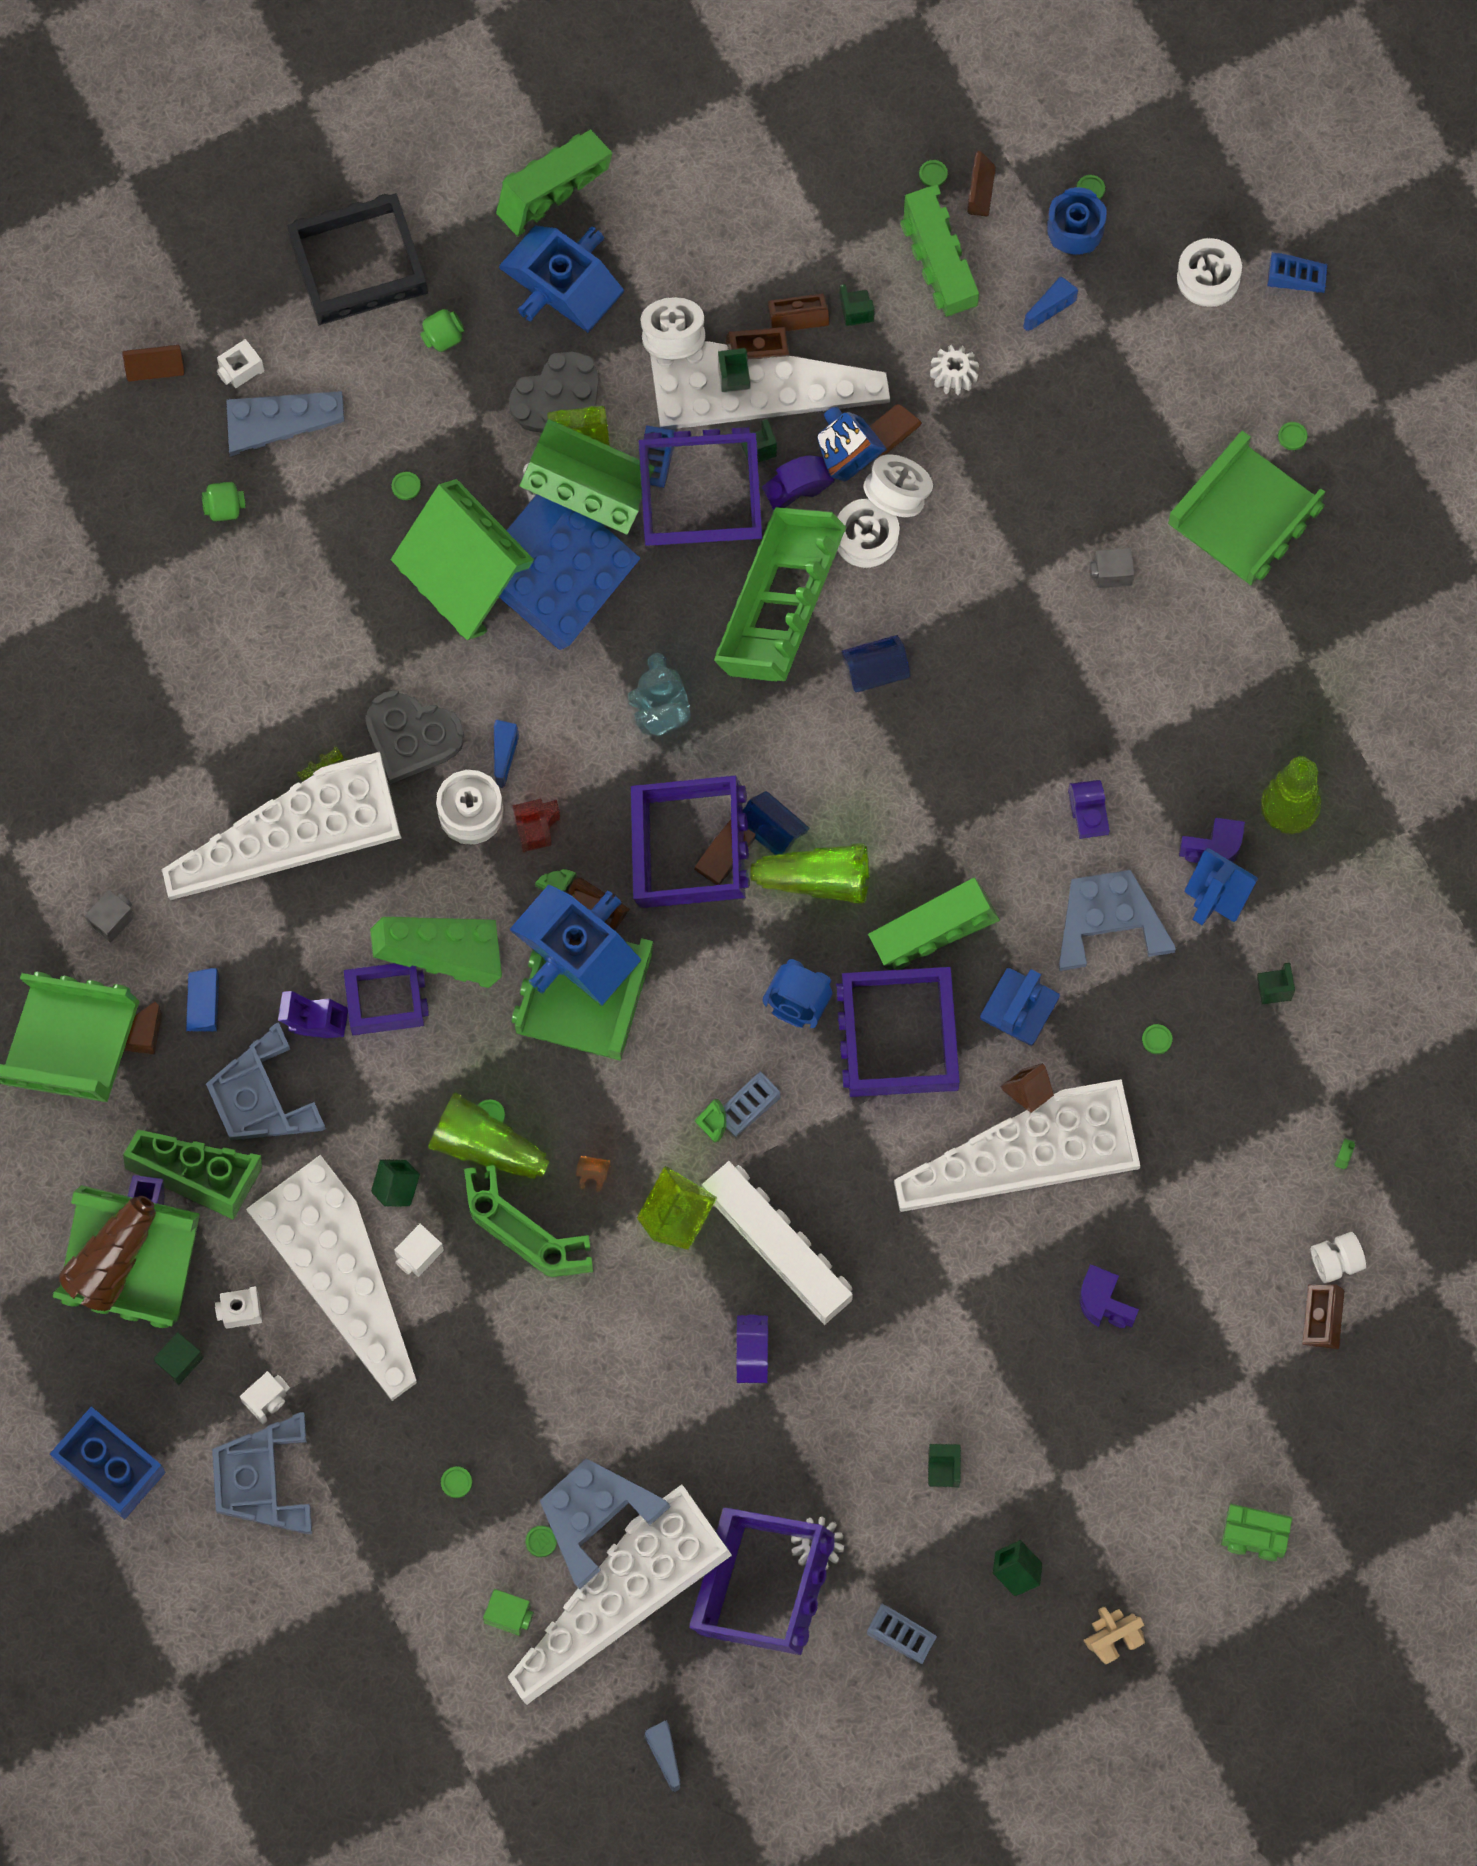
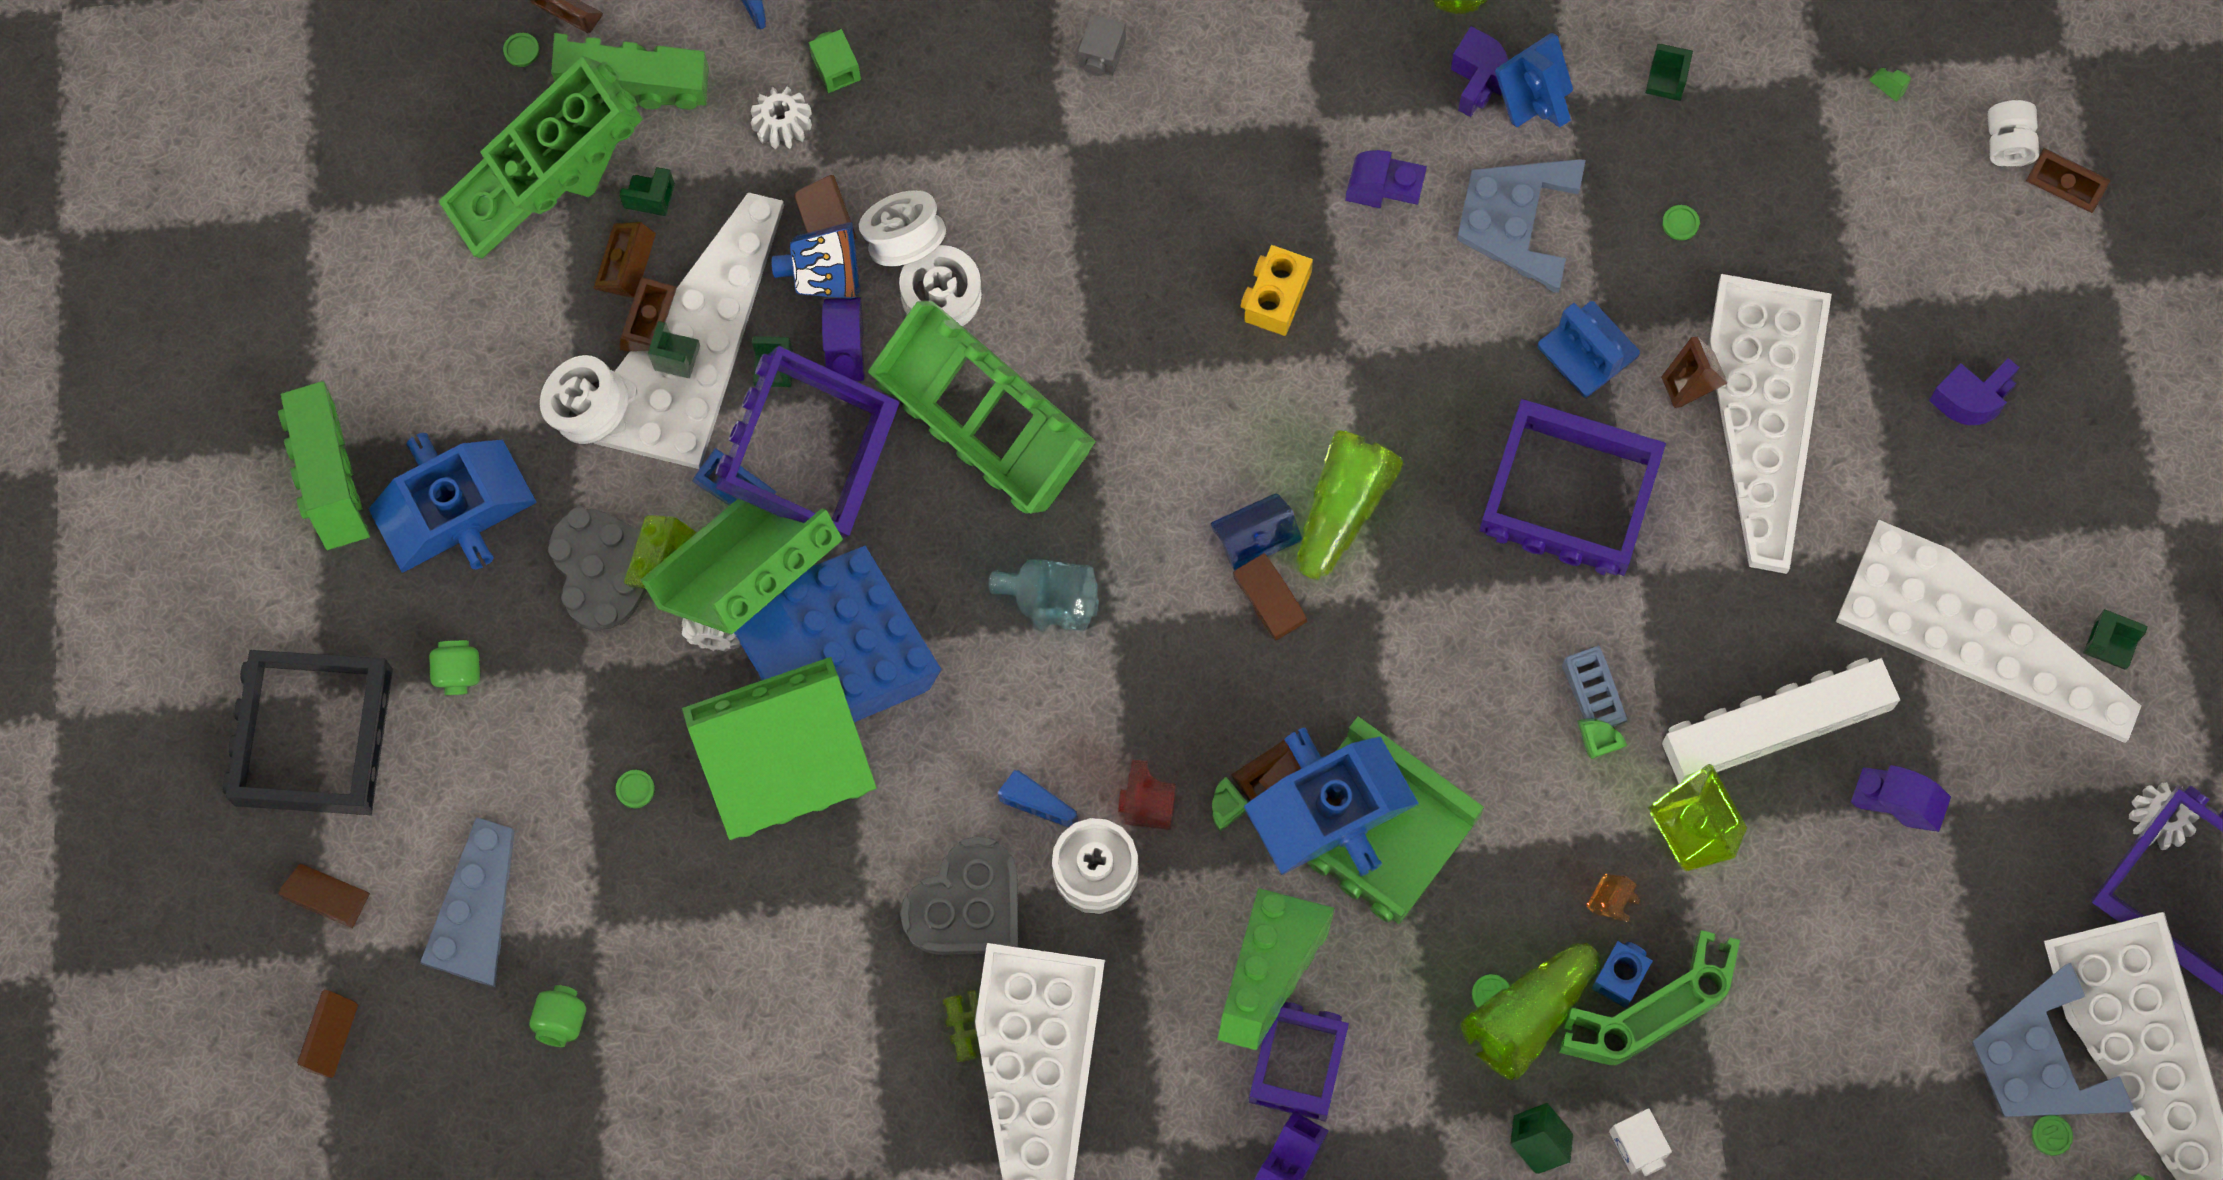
camera: 65 degrees left, 0 degrees up
(241, 356) = (372, 918): white brick -> none
(249, 318) = (324, 895): none -> reddish brown slope
(528, 1186) = (1621, 990): none -> blue brick
(641, 855) = (1253, 563): dark purple window -> none
(798, 994) = (1488, 578): blue brick -> none
(845, 219) = (547, 150): none -> bright green wedge
(876, 663) = (1104, 340): clear blue panel -> none
(917, 1338) = (1953, 616): none -> white wing
(934, 925) = (1461, 398): bright green wedge -> none
(968, 775) = (1282, 291): none -> yellow brick
(1017, 387) = (834, 60): none -> bright green brick

